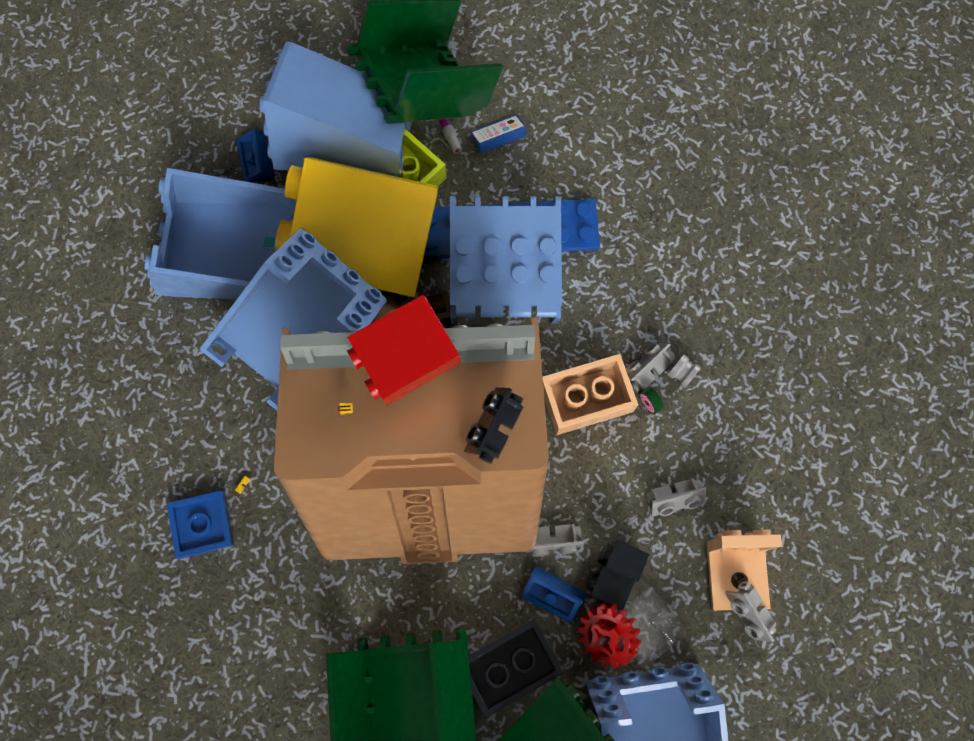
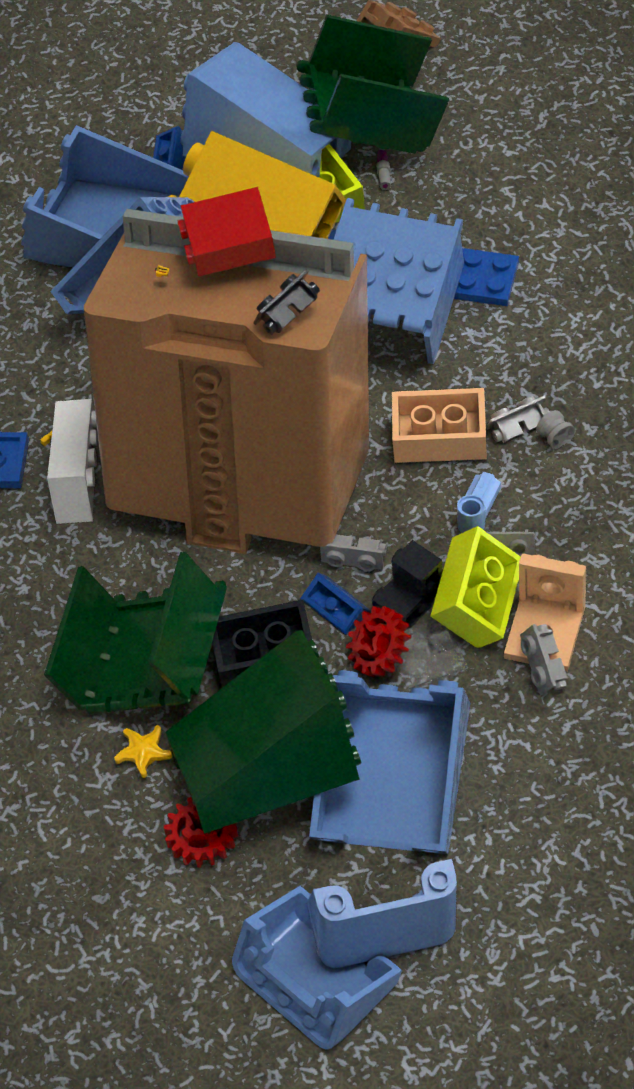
camera: 25 degrees right, 20 degrees down
(273, 512) = (73, 461): none -> white wedge
(498, 133) = (436, 180): slope -> none
(643, 460) = (477, 502): none -> light blue piece
(651, 400) = (508, 448): dark green tile -> none
(678, 560) = (477, 587): none -> neon yellow brick

